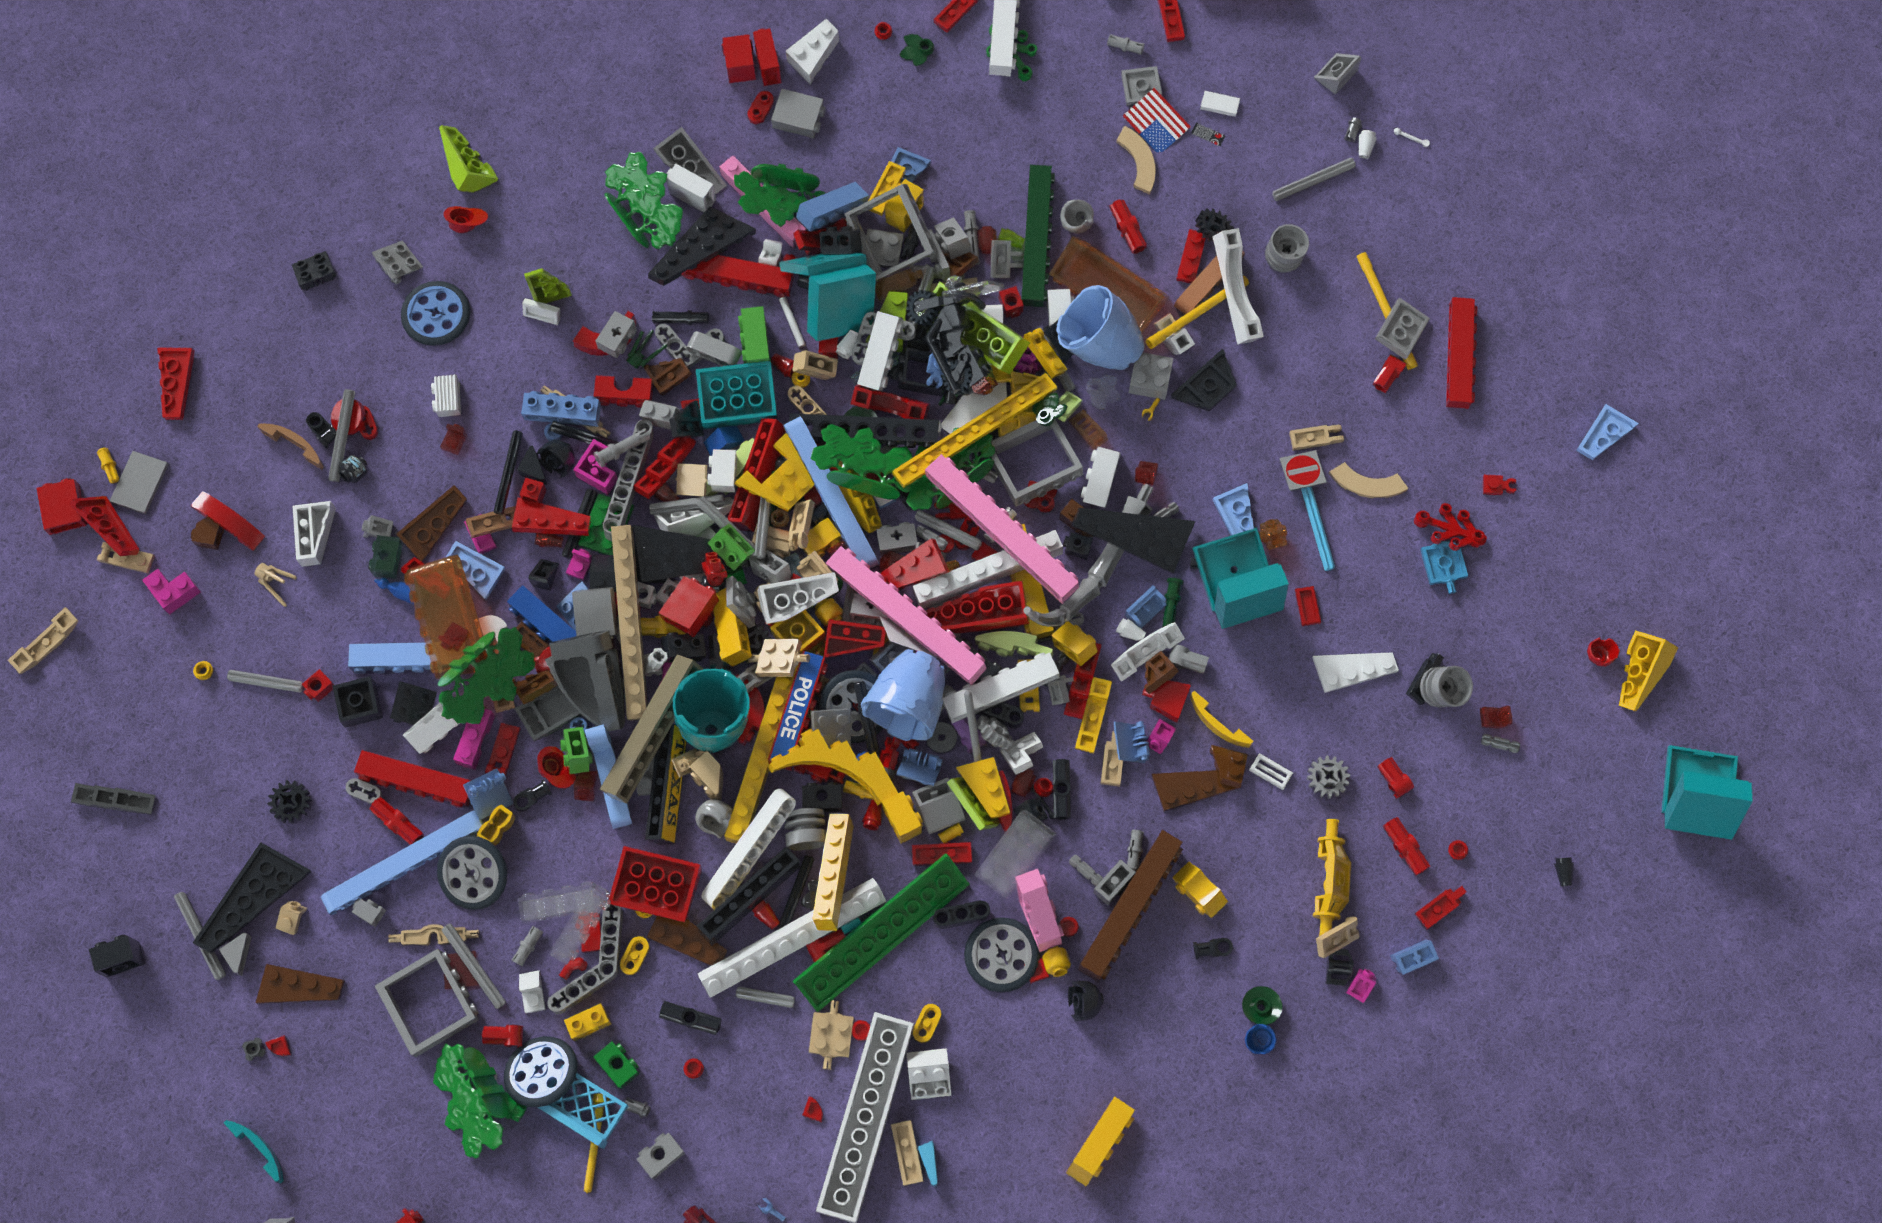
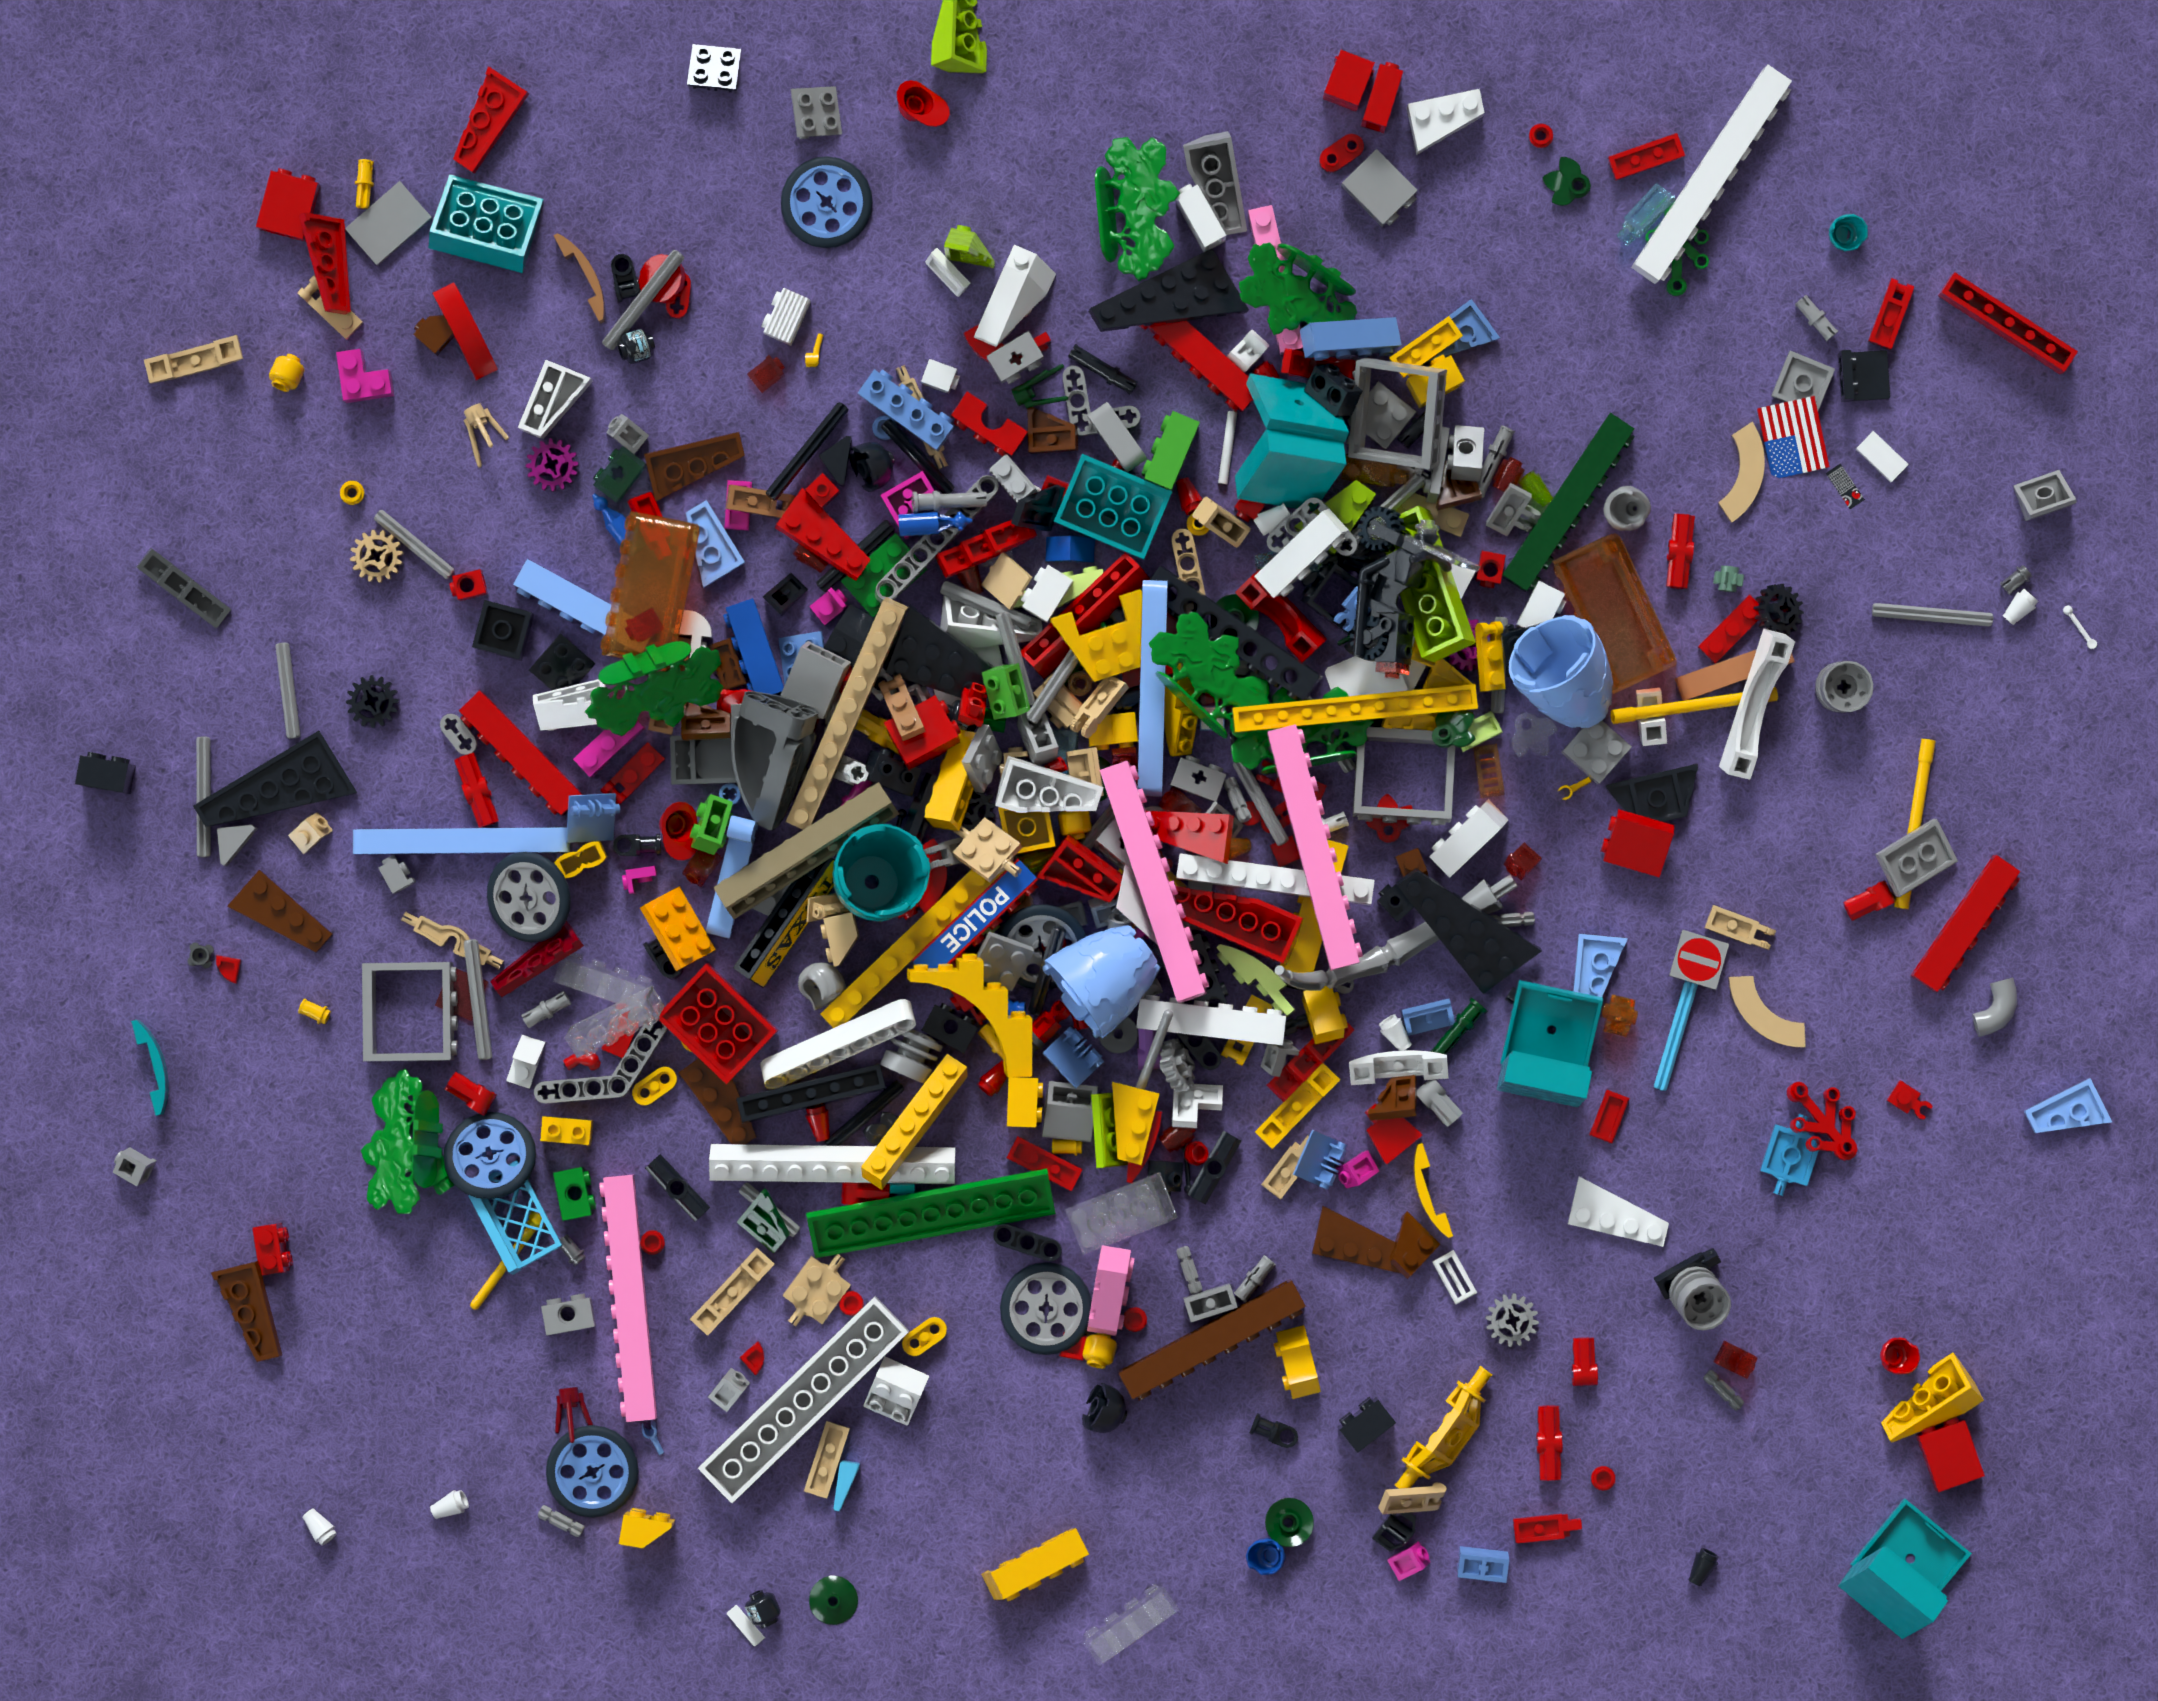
camera: 30 degrees right, 15 degrees up
(115, 615) = (286, 372): none -> yellow head
(206, 447) = (485, 223): none -> teal slope
(224, 828) = (287, 690): none -> light grey axle
(246, 694) = (363, 563): none -> tan gear
(340, 570) = (540, 470): none -> magenta gear
(358, 1042) = (314, 1011): none -> yellow pin
(479, 414) = (812, 359): none -> yellow hand
(501, 913) = (537, 960): none -> dark red wing
(545, 813) = (642, 874): none -> dark pink bracket
(573, 378) = (940, 376): none -> white brick
(590, 859) = (660, 958): none -> black piece
(591, 835) = (677, 928): none -> light orange plate
(594, 297) = (1018, 290): none -> white wedge
(616, 467) = (929, 523): none -> blue wheel
(665, 595) = (902, 708): none -> medium nougat plate
(699, 1118) = (630, 1298): none -> bright pink brick
(766, 1006) = (764, 1222): none -> wing
(771, 1069) = (732, 1291): none -> tan slope
(807, 1143) = (729, 1389): none -> light grey bracket
(978, 40) = (1645, 214): none -> clear light blue hinge
(1169, 225) = (1728, 579): none -> sand green gear
(1176, 62) = (1863, 375): none -> black bracket
(1194, 1146) = (1130, 1624): none -> clear brick
(1215, 417) = (1637, 842): none -> red brick
(1274, 903) = (1366, 1423): none -> black brick
(1519, 394) = (2000, 1011): none -> light grey cylinder
(1679, 698) = (1950, 1454): none -> red brick

